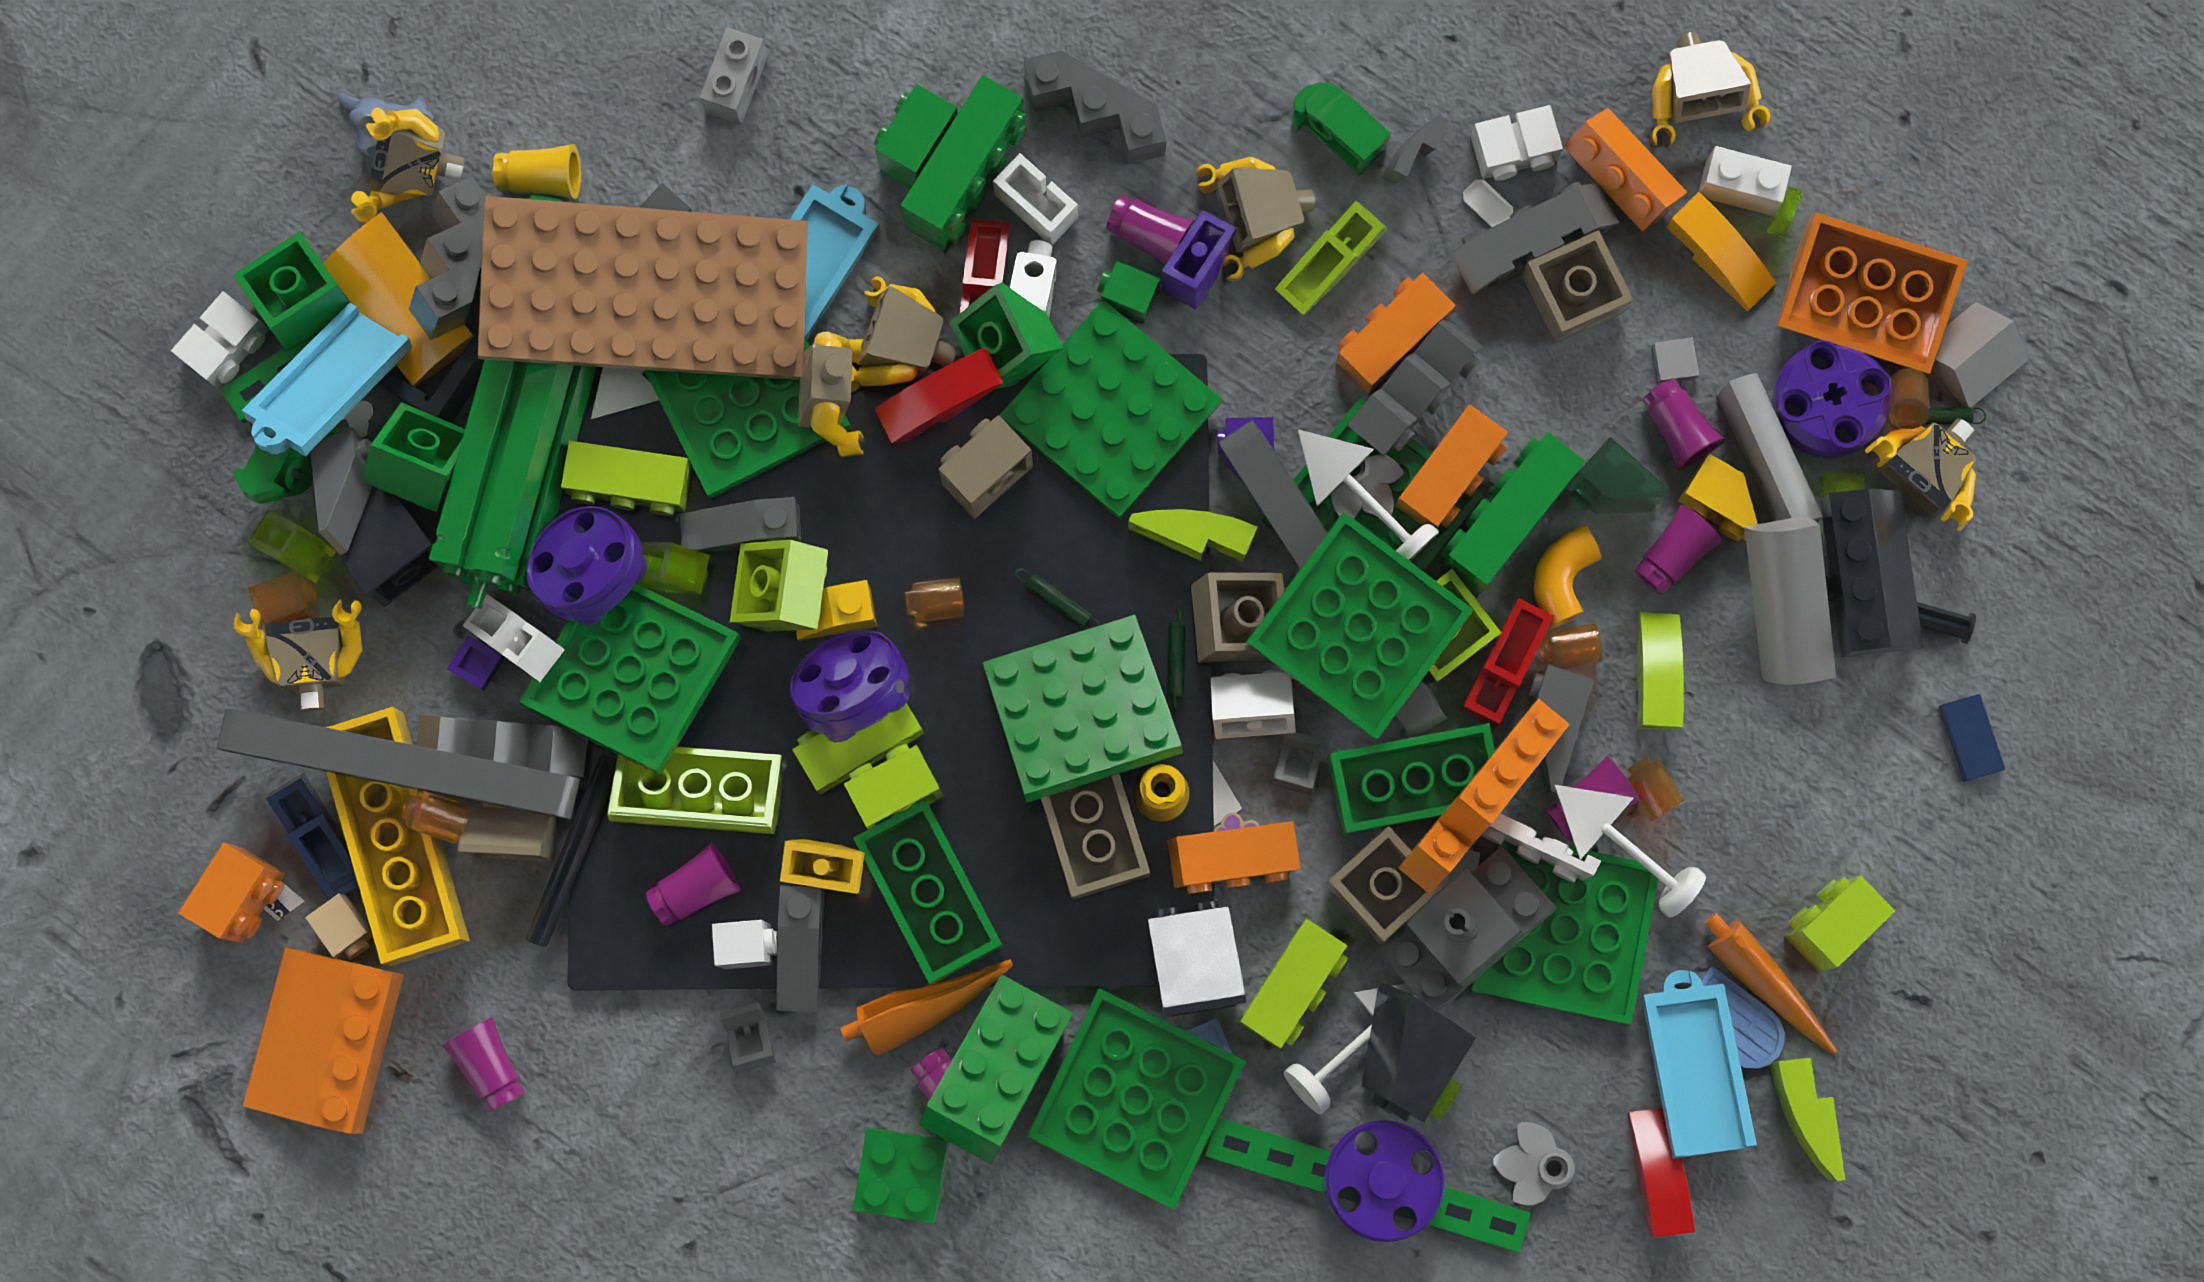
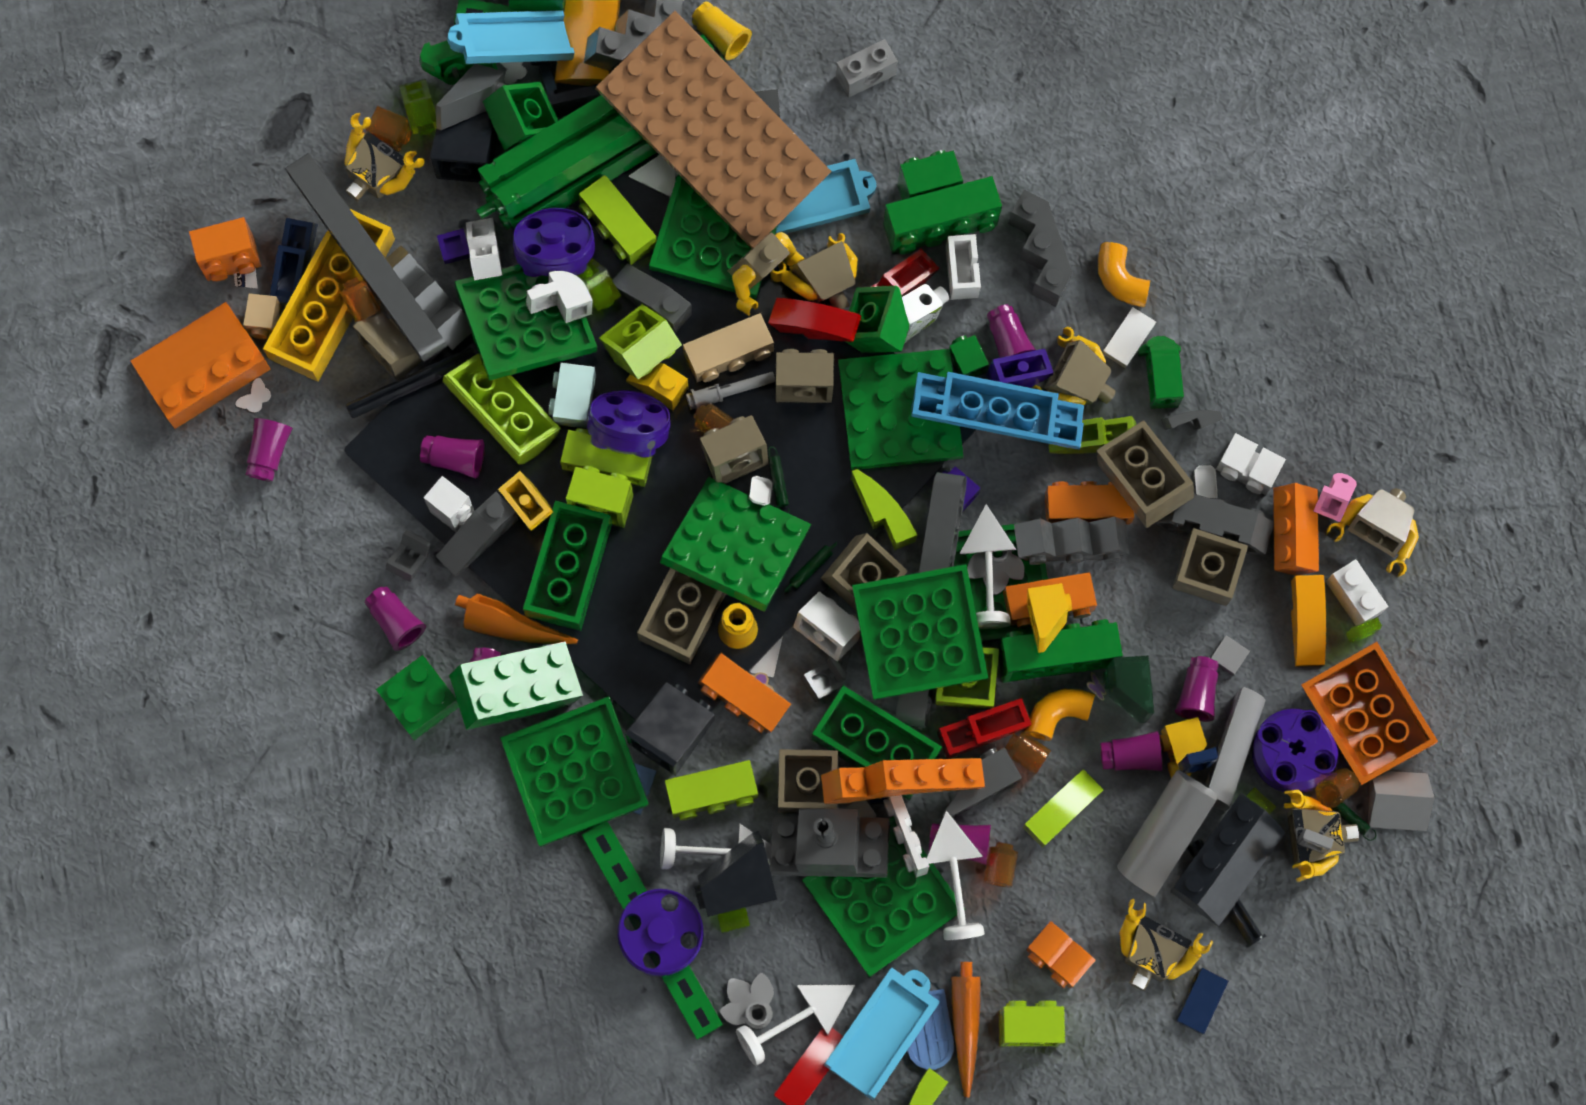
camera: 40 degrees right, 5 degrees down
(419, 1022) = (258, 395): none -> white sticker
(647, 606) = (562, 290): none -> white brick
(761, 708) = (573, 395): none -> light aqua brick
(795, 1115) = (394, 618): none -> magenta plant
(875, 508) = (729, 348): none -> tan brick
(907, 567) = (715, 393): none -> light grey pin
(986, 609) = (734, 449): none -> dark tan slope
(1050, 627) = (760, 490): none -> white piece
(1204, 69) = (1117, 279): none -> light orange cylinder
(1218, 319) = (998, 408): none -> dark azure slope
(1271, 120) = (1129, 337): none -> white tile
(1432, 249) = (1145, 474): none -> dark tan brick
(1471, 486) = (1047, 612): none -> yellow slope
(1577, 516) = (1096, 687): none -> medium lavender sticker
(1610, 1093) = (824, 1002): none -> white piece
(1636, 98) = (1336, 496): none -> bright pink leg
(1760, 500) = (1198, 761): none -> dark blue tile
(1796, 823) = (1059, 955): none -> orange brick
(1884, 728) = (1156, 949): none -> torso
(1943, 474) = (1315, 841): none -> light grey tile

